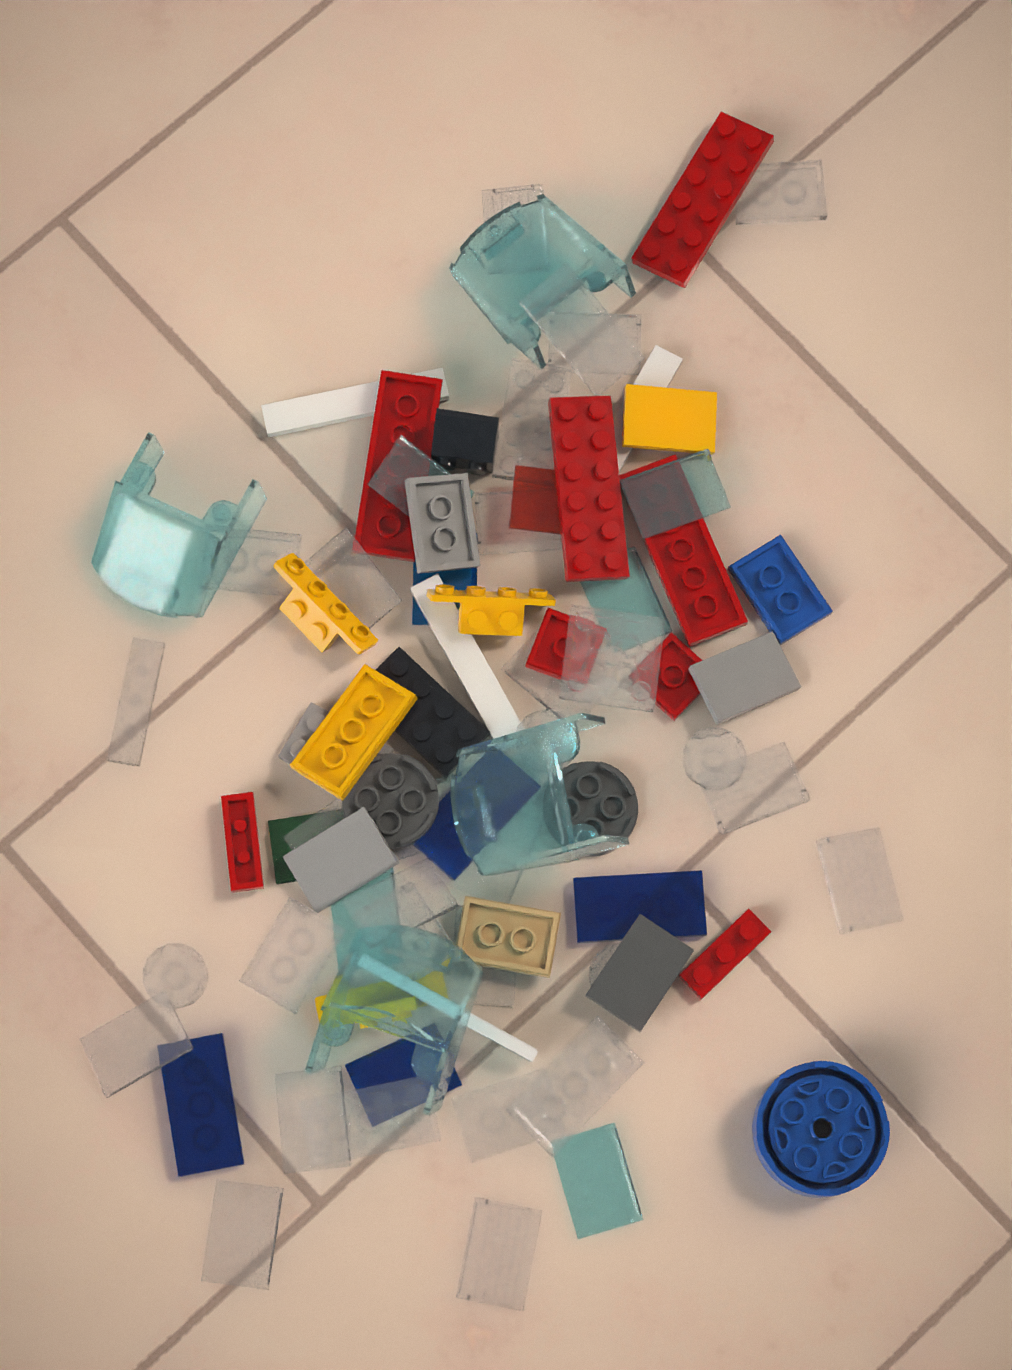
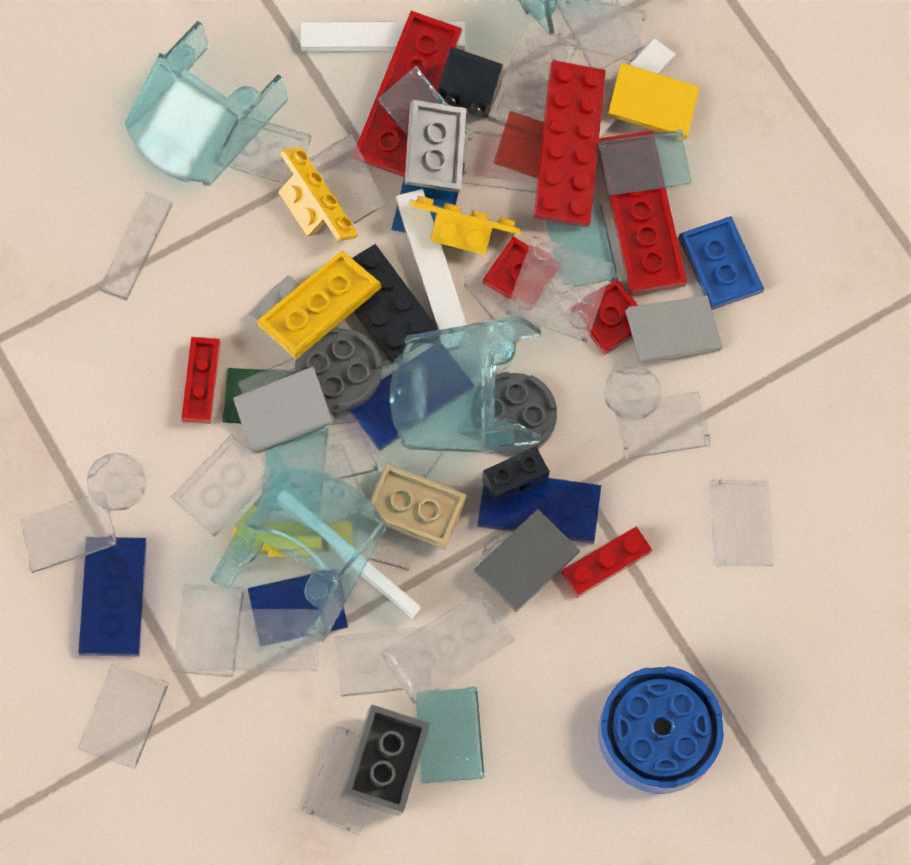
camera: 10 degrees right, 5 degrees down
(535, 1227) = (385, 760): none -> dark grey brick
(608, 882) = (515, 476): none -> black brick

